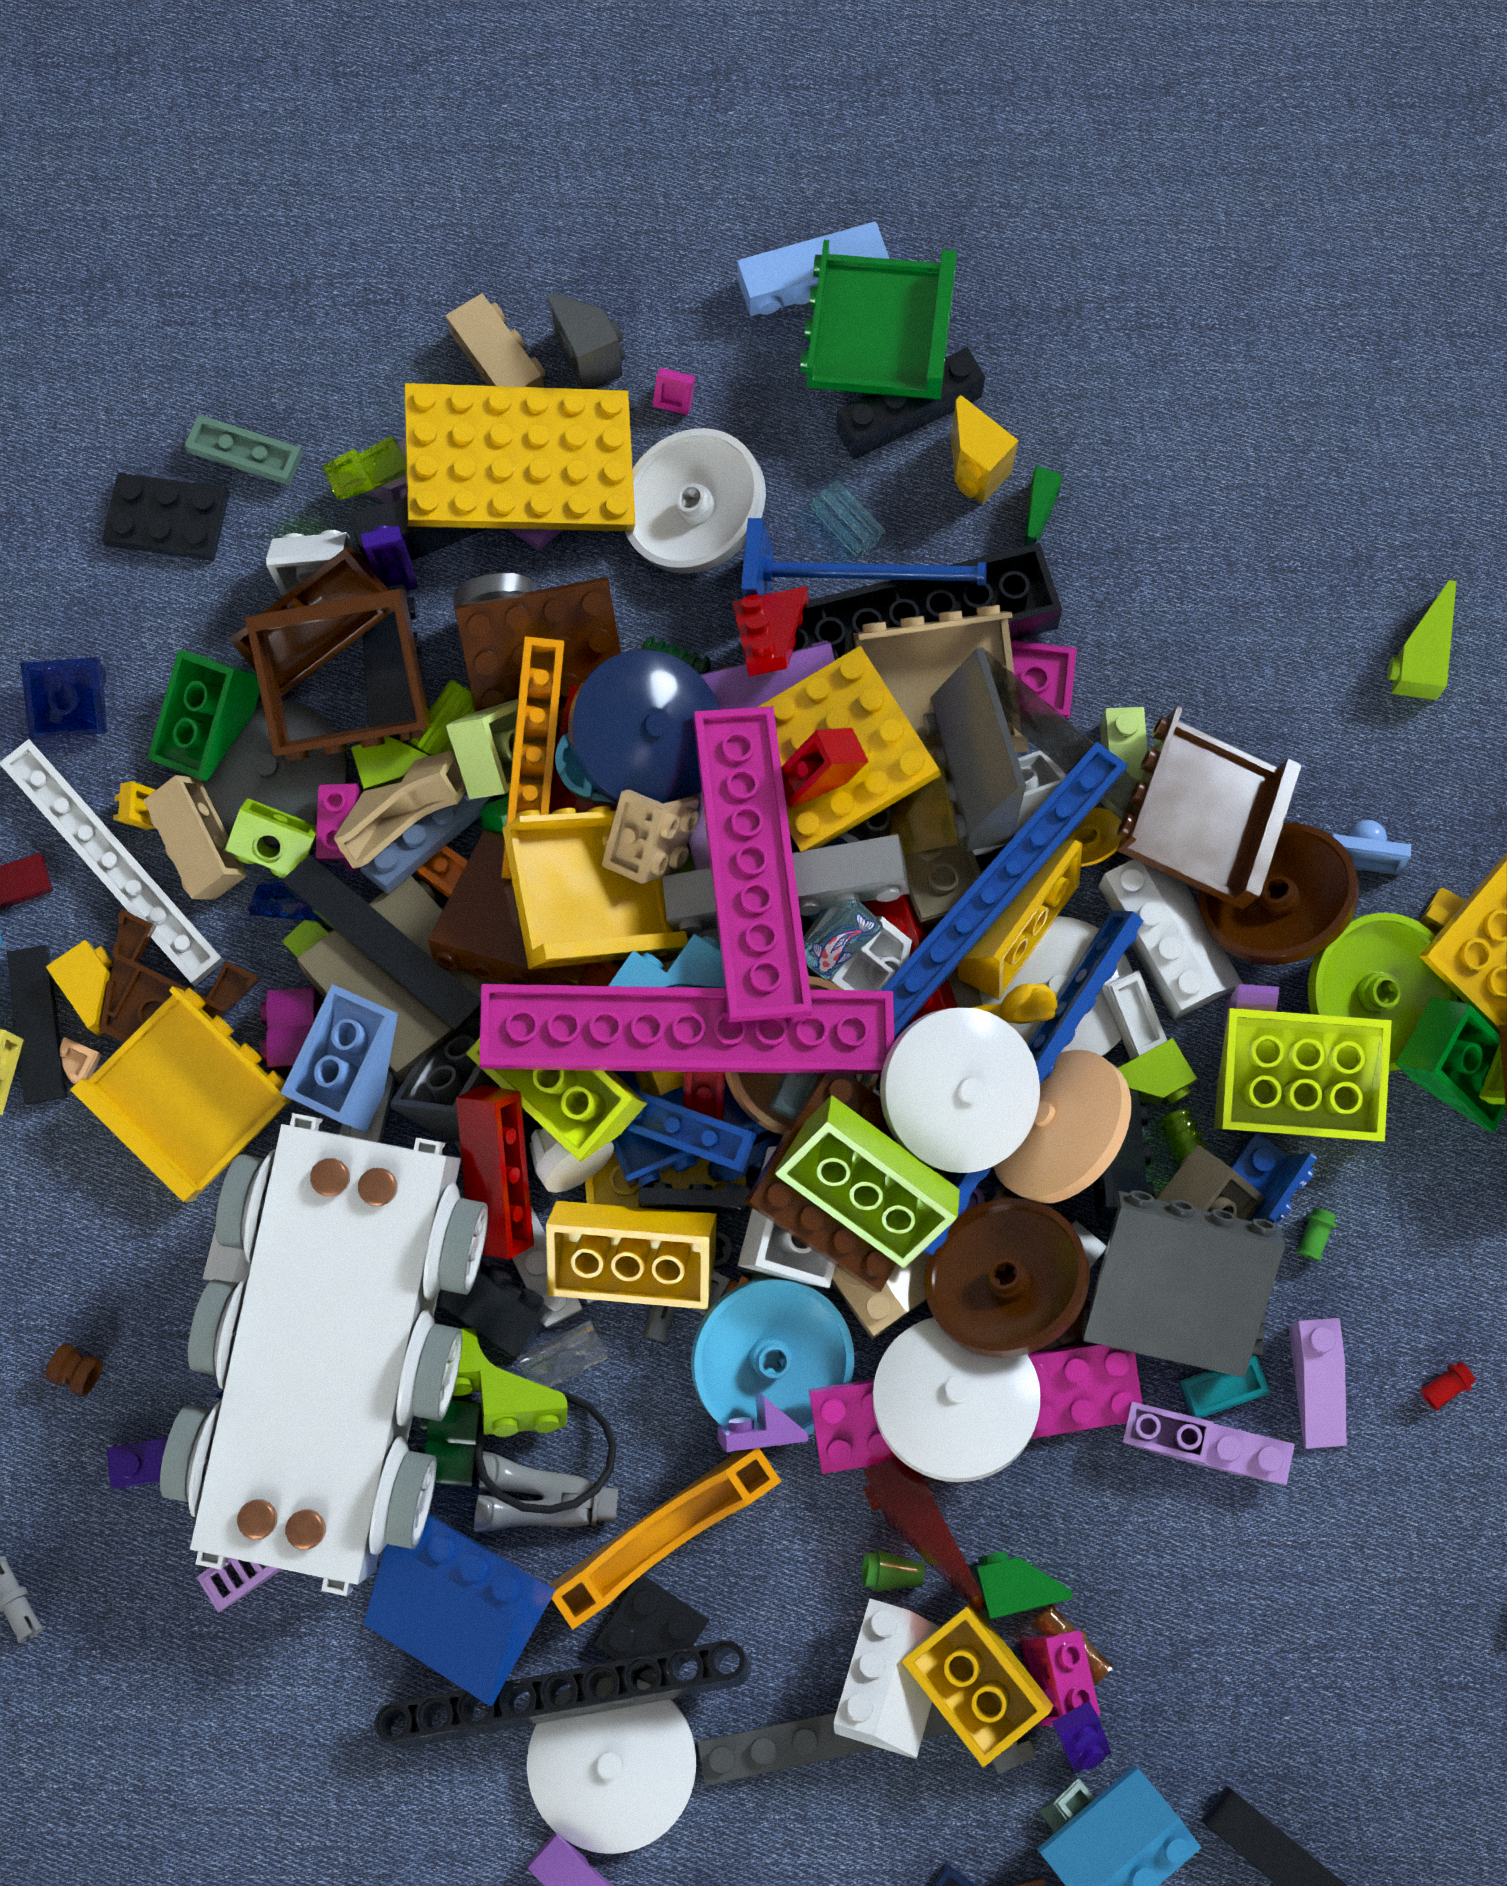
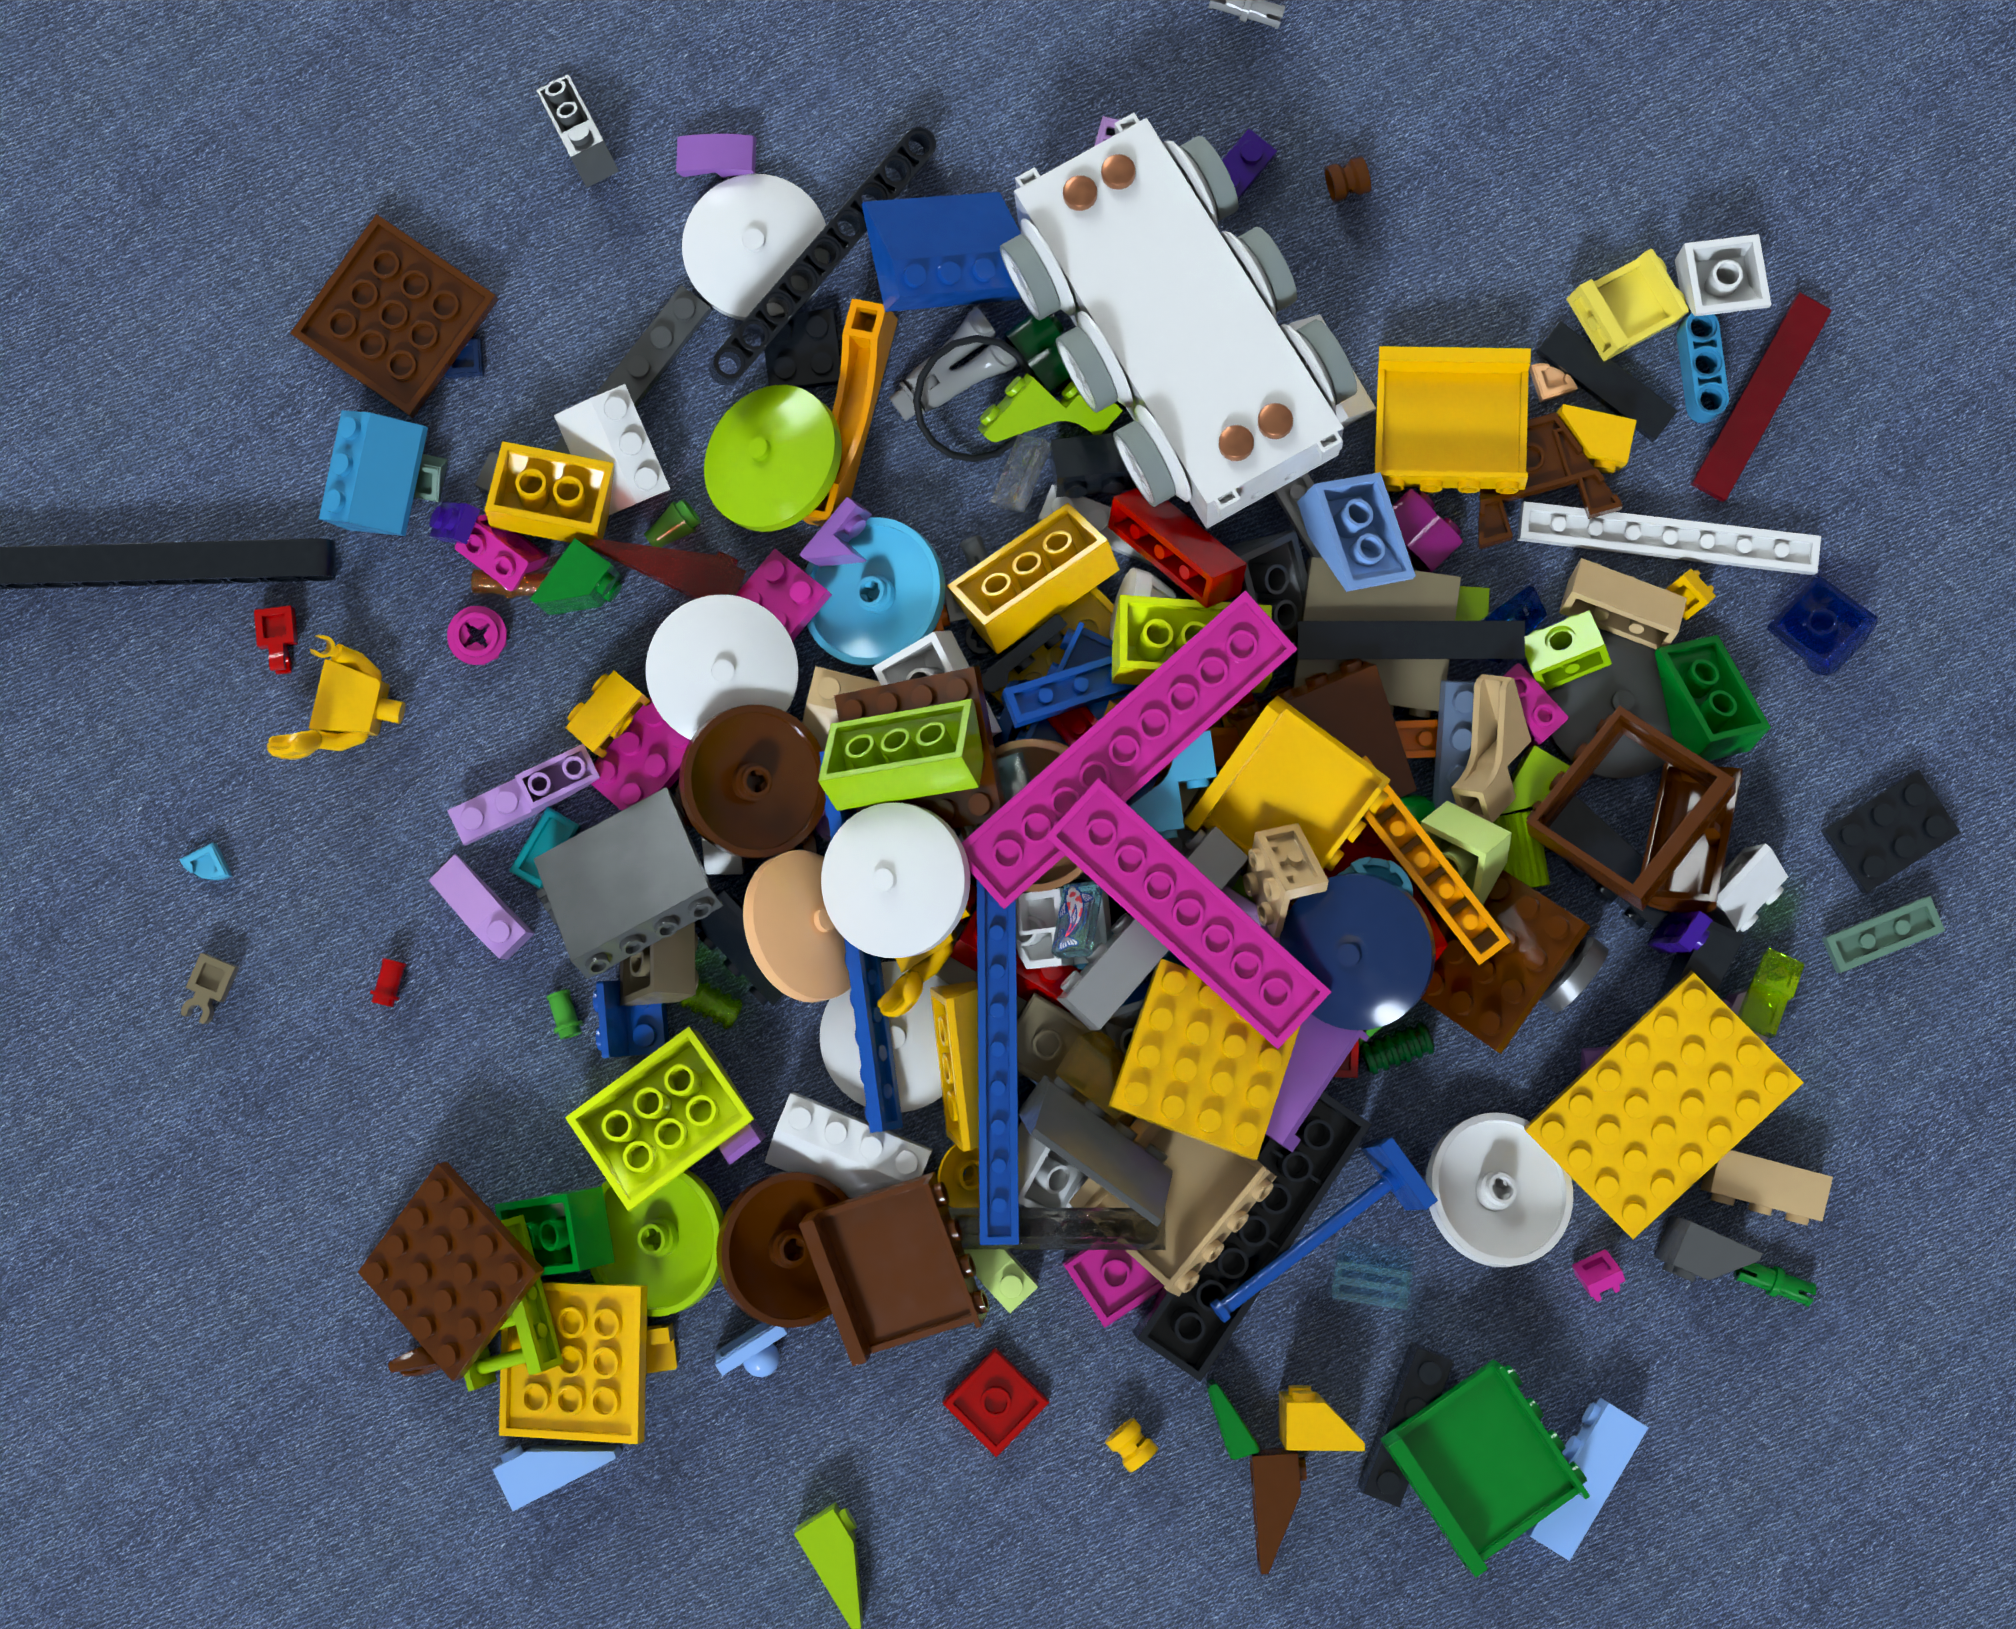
camera: 140 degrees right, 10 degrees up
(547, 277) = (1776, 1282): none -> green pin
(759, 1549) = (772, 458): none -> lime dish
(769, 628) = (1342, 1120): red wing -> none
(821, 765) = (1199, 1031): red slope -> none
(1054, 429) = (1275, 1493): none -> reddish brown slope
(1082, 1451) = (606, 712): none -> yellow slope
(1128, 549) = (1131, 1445): none -> yellow wheel
(1134, 1014) = (823, 1065): white tile -> none
(1153, 1637) = (459, 635): none -> dark pink gear
(1160, 1074) = (772, 1032): lime slope -> none
(1206, 664) = (995, 1401): none -> red tile
(1306, 1654) = (346, 706): none -> yellow torso
(1315, 1782) = (275, 631): none -> red plate

